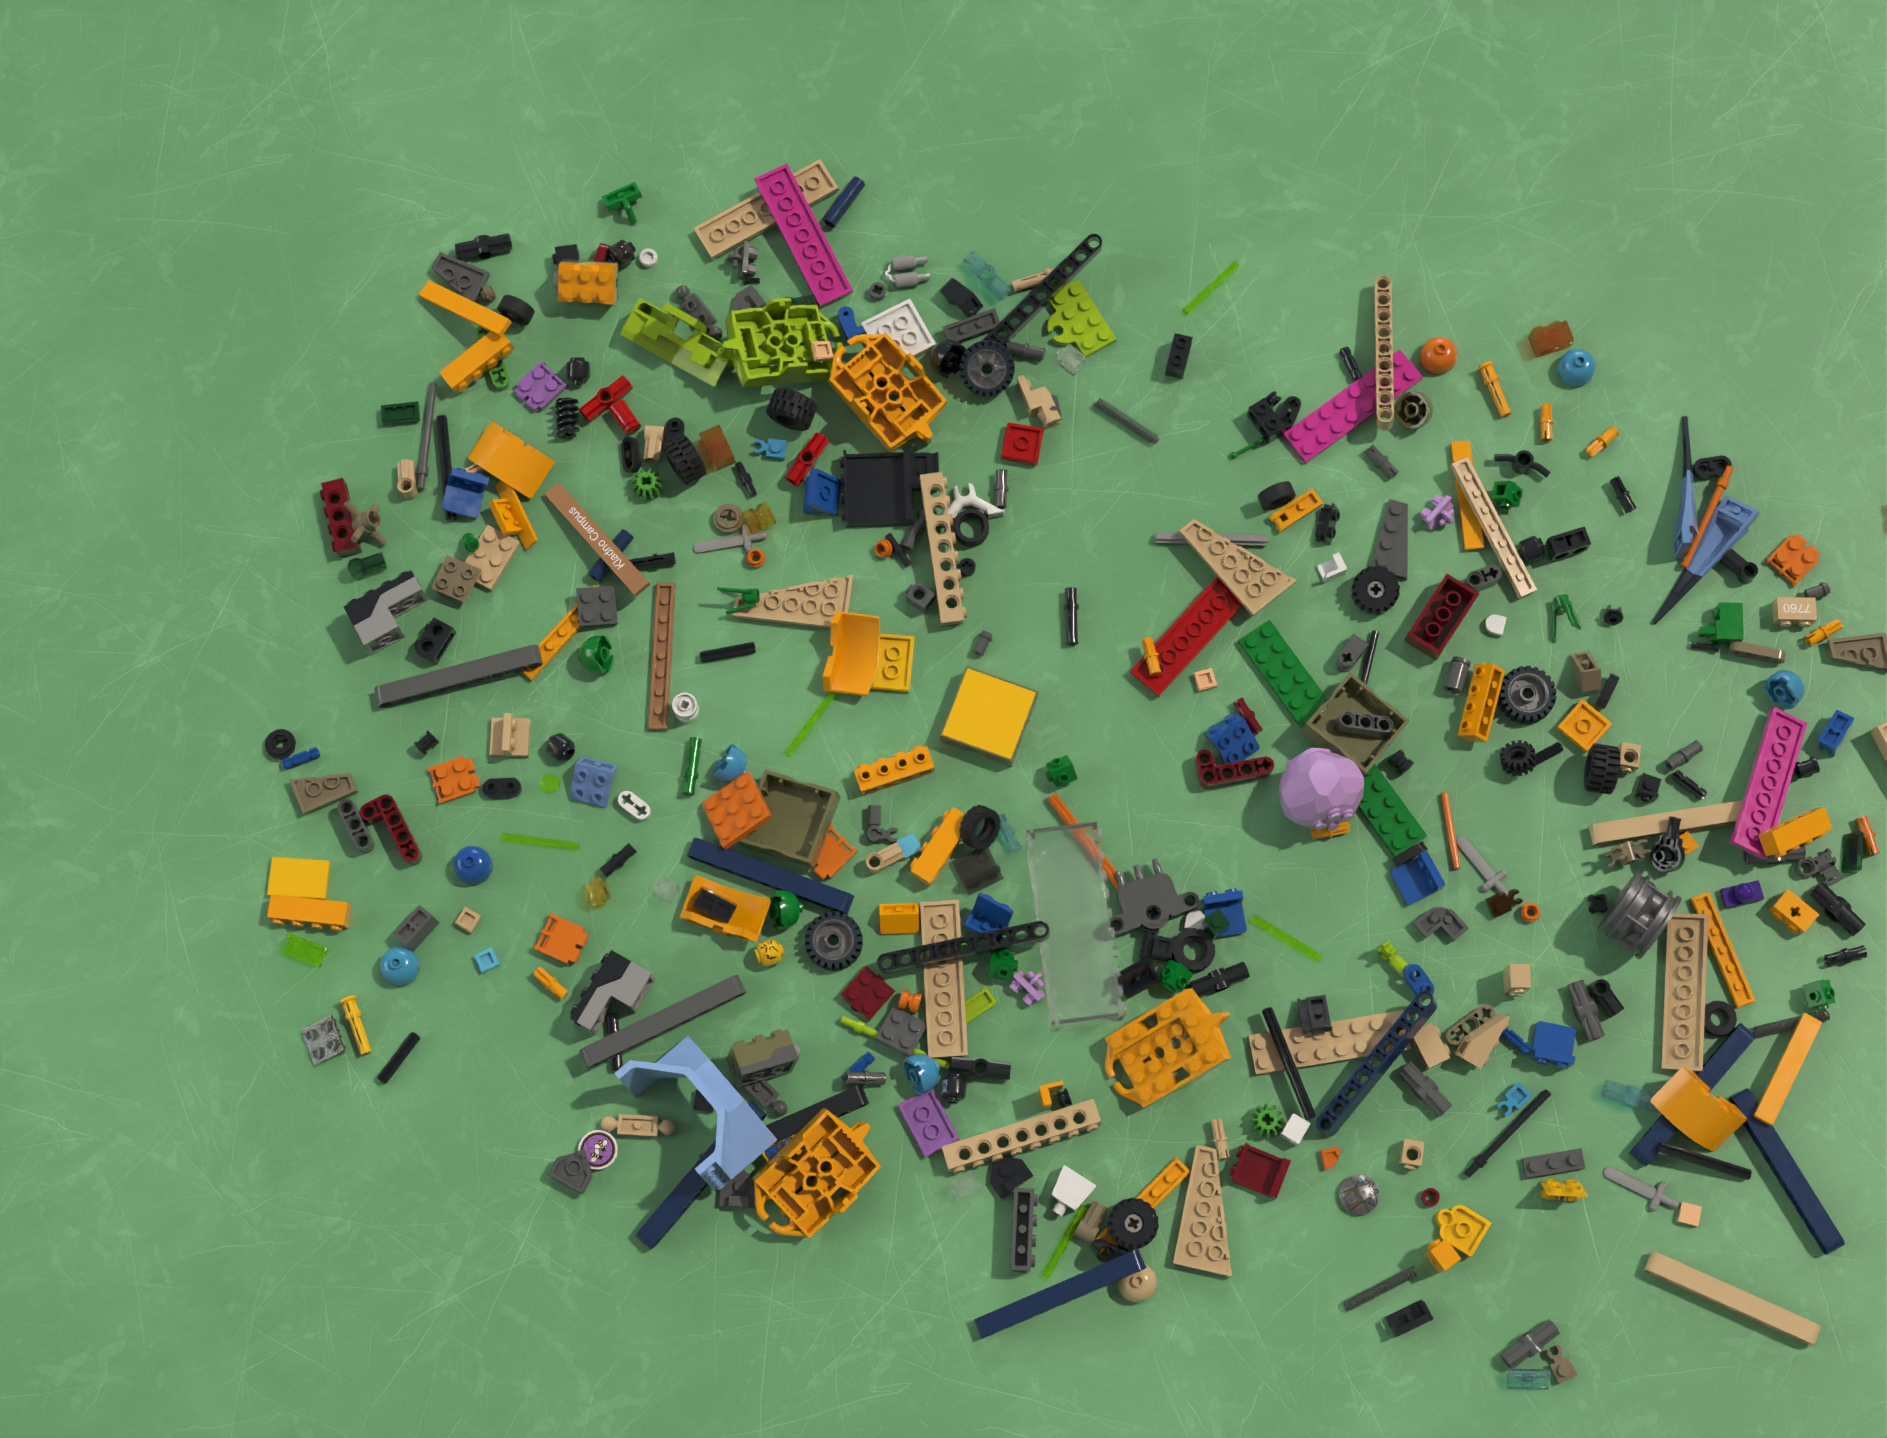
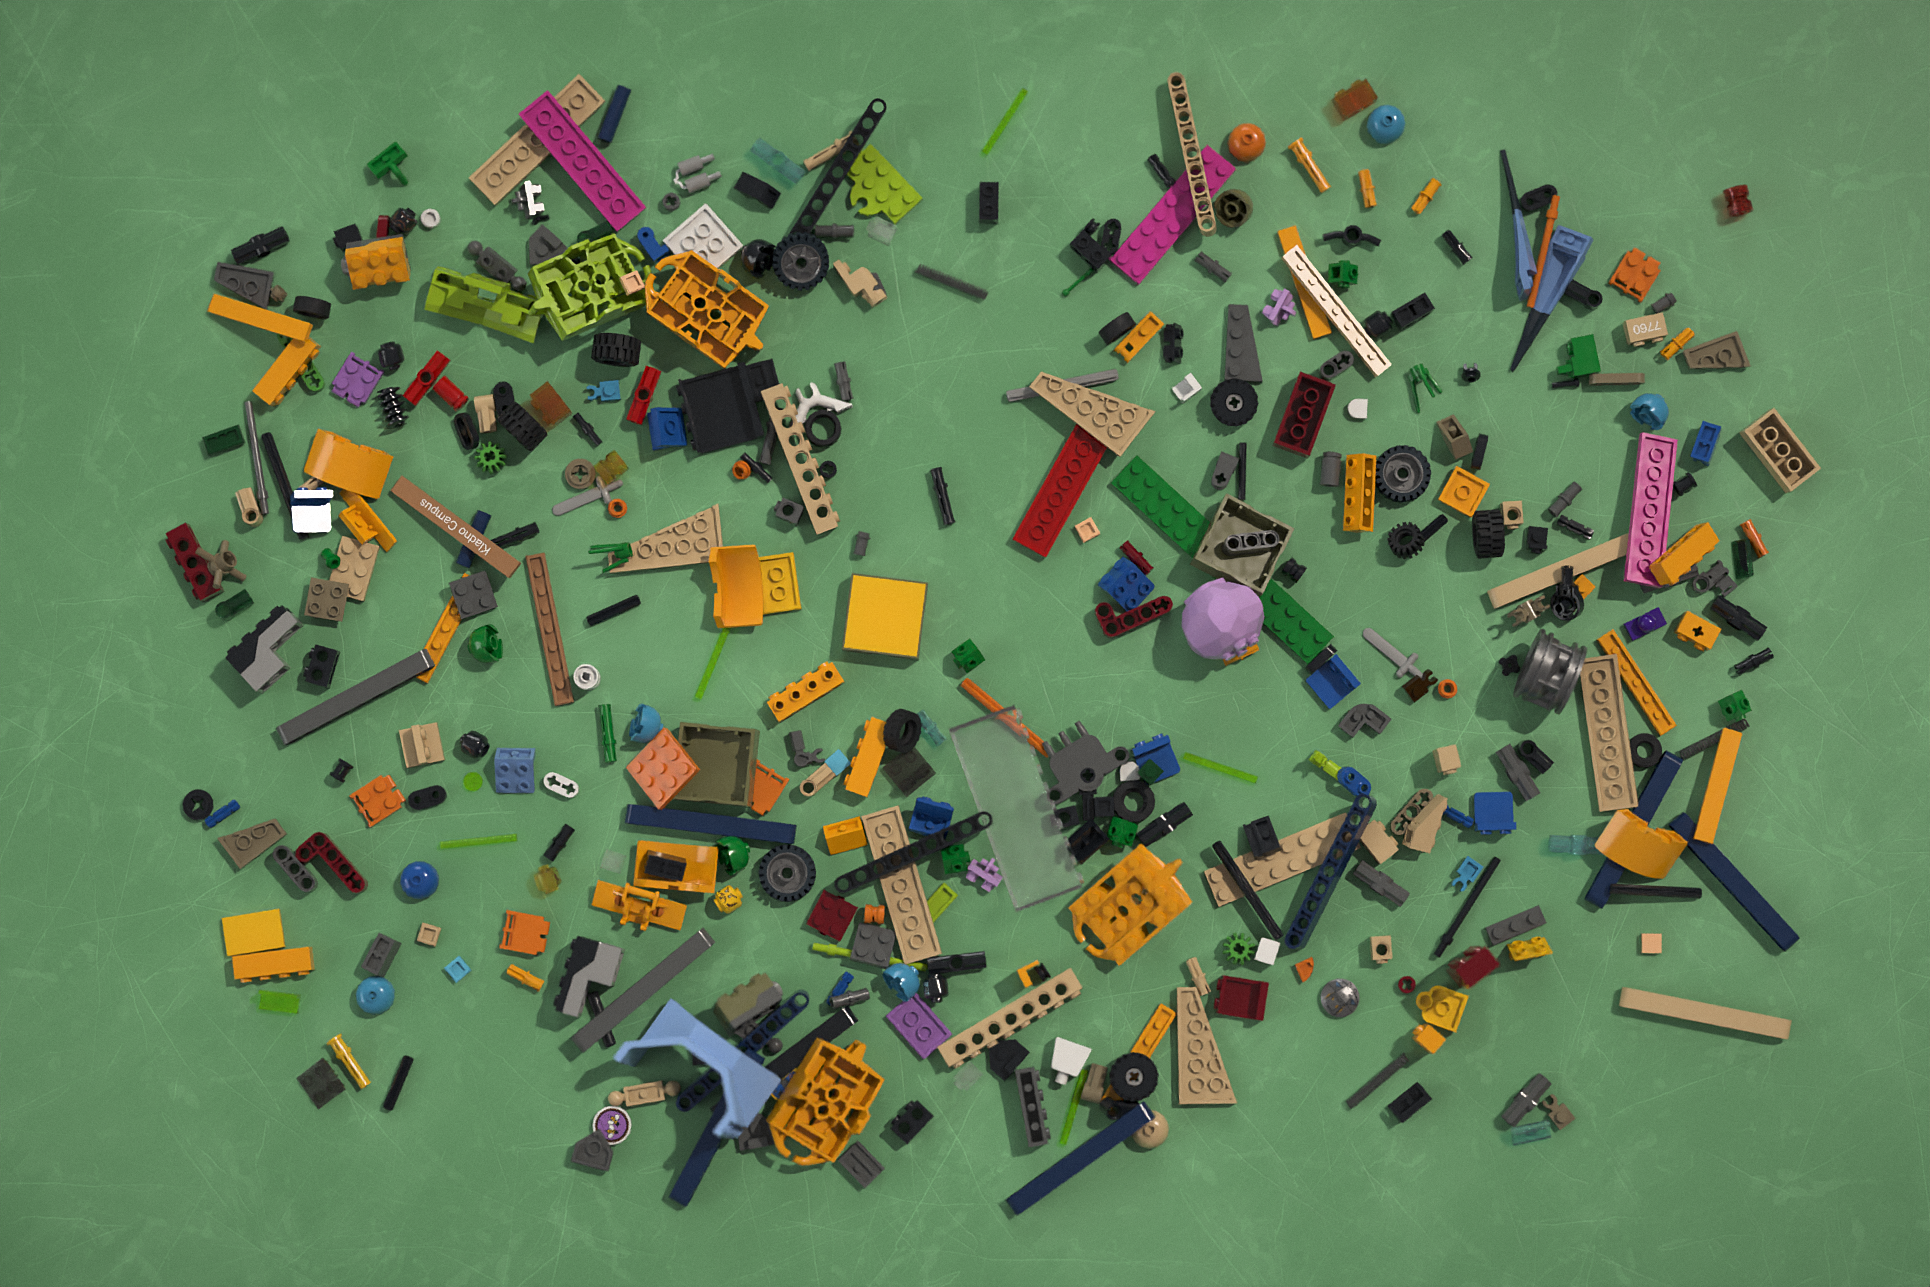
camera: 15 degrees left, 10 degrees up
(698, 949) = (637, 910): none -> light orange piece
(791, 1083) = (747, 1042): none -> dark blue beam
(837, 1248) = (861, 1164): none -> dark grey plate
(901, 1221) = (915, 1124): none -> black brick
(972, 325) = (774, 217): dark grey plate -> none
(1022, 443) = (853, 329): red plate -> none
(1129, 946) = (1072, 812): none -> black brick
(1151, 656) = (1029, 520): light orange axle -> none
(1450, 831) = (1355, 626): orange bar -> none
(1502, 1189) = (1472, 967): none -> dark red brick
(1656, 1195) = (1602, 929): light grey sword -> none

